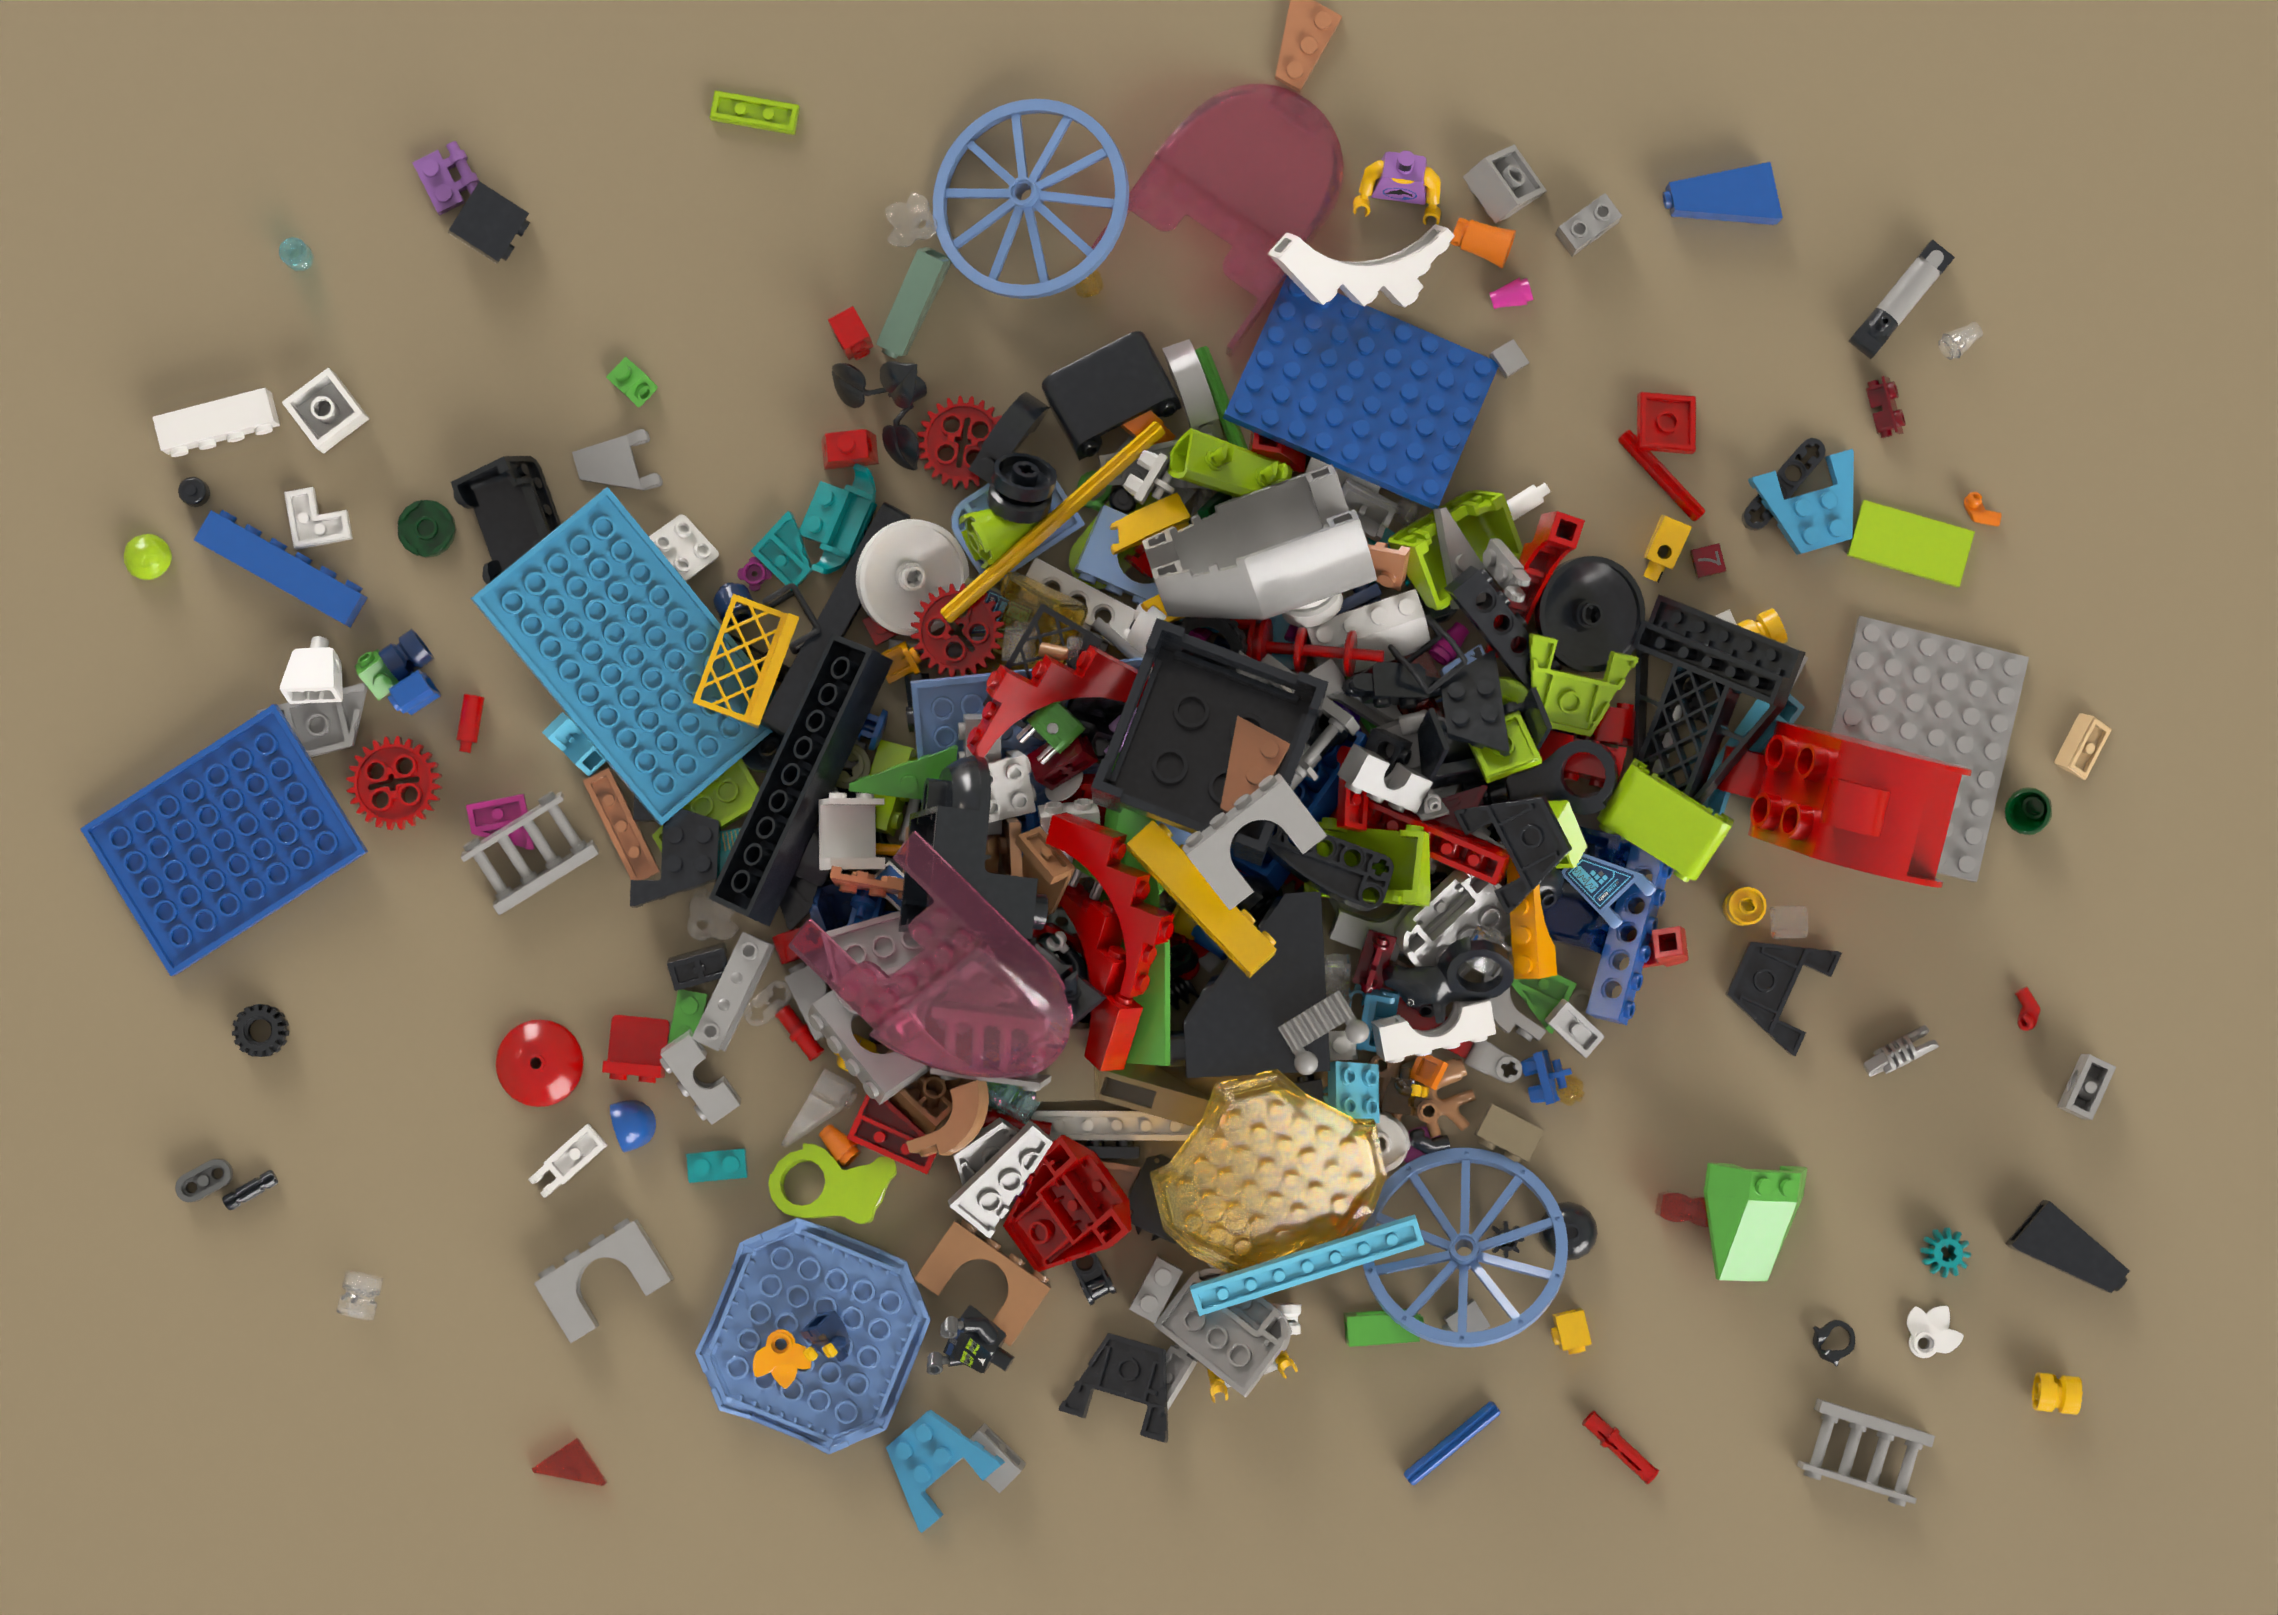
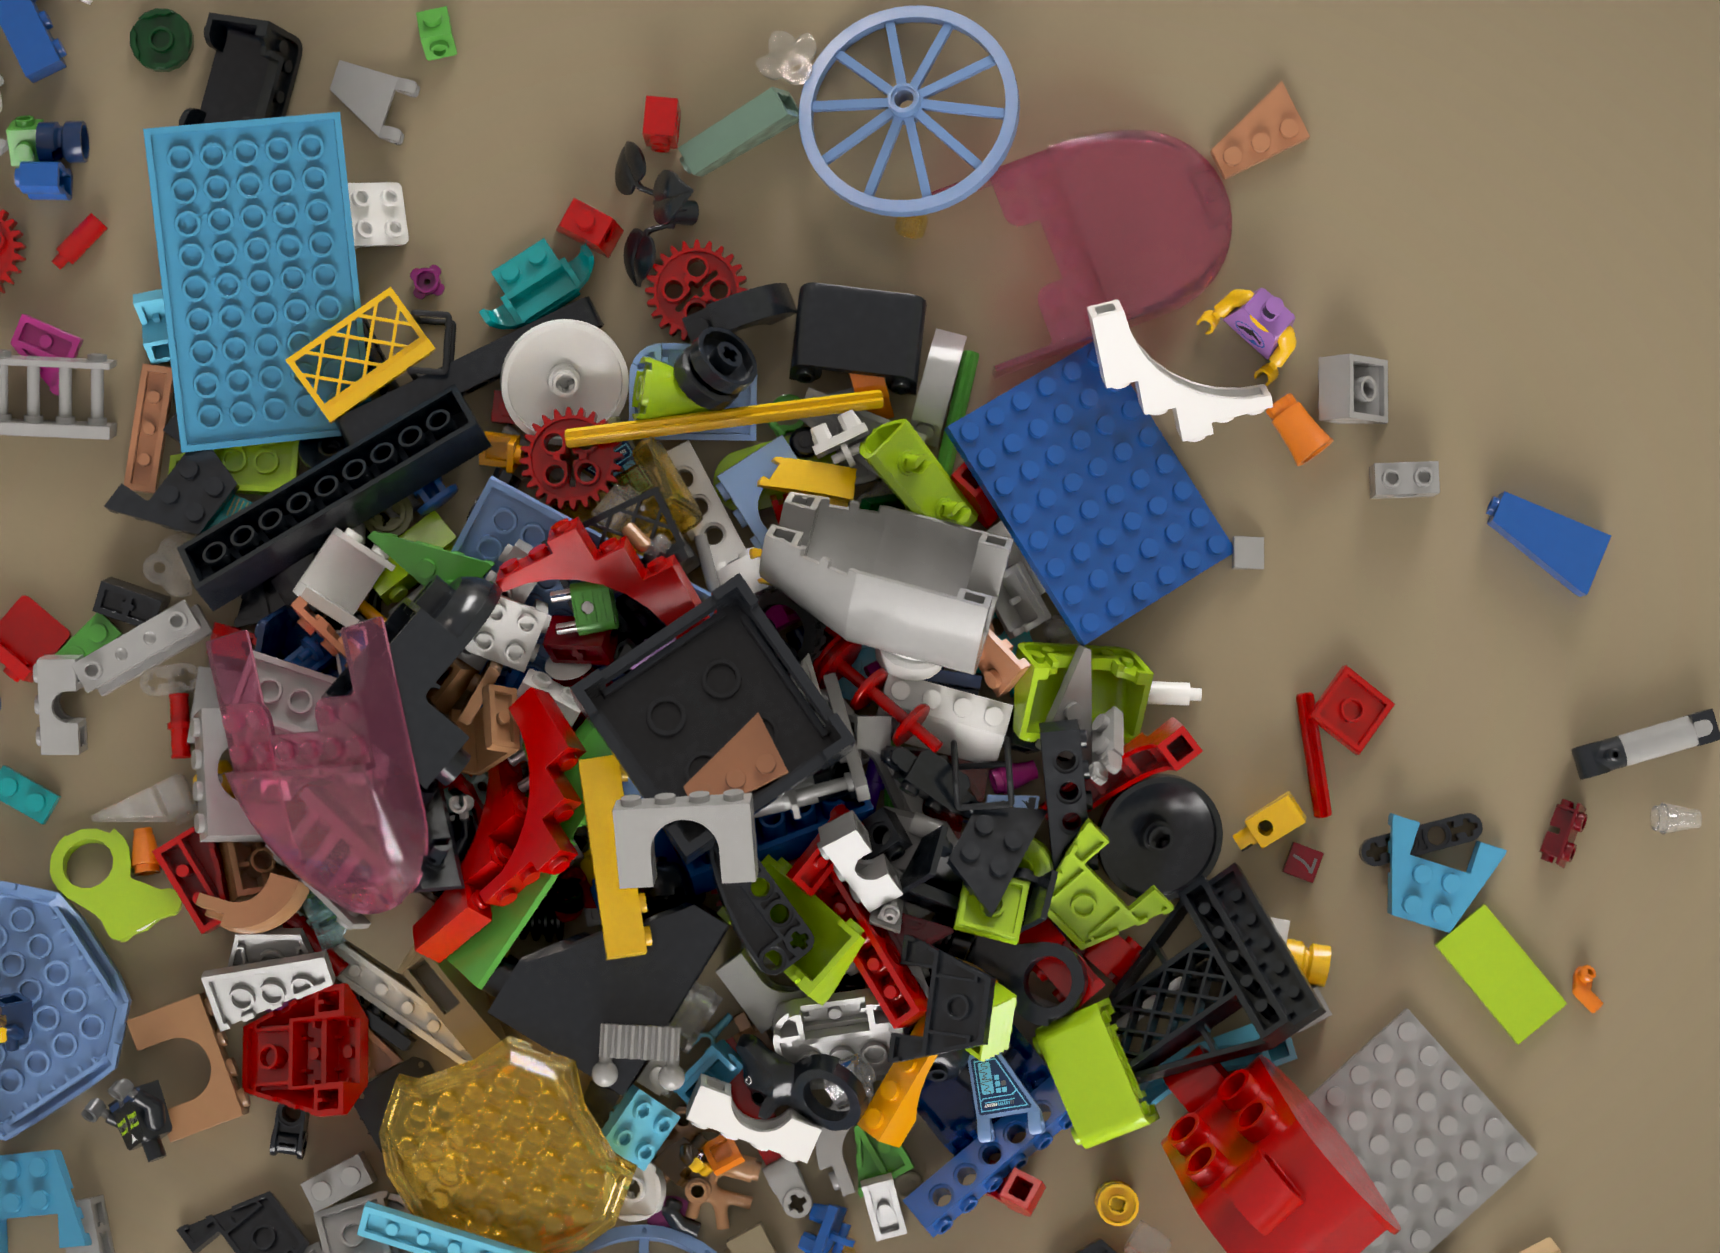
camera: 35 degrees right, 0 degrees up
(723, 598) = (387, 307): dark blue head -> none
(784, 551) = (467, 280): teal wing -> none
(1373, 960) = (741, 1019): dark red hinge -> none
(1512, 294) = (1290, 496): dark pink cone -> none

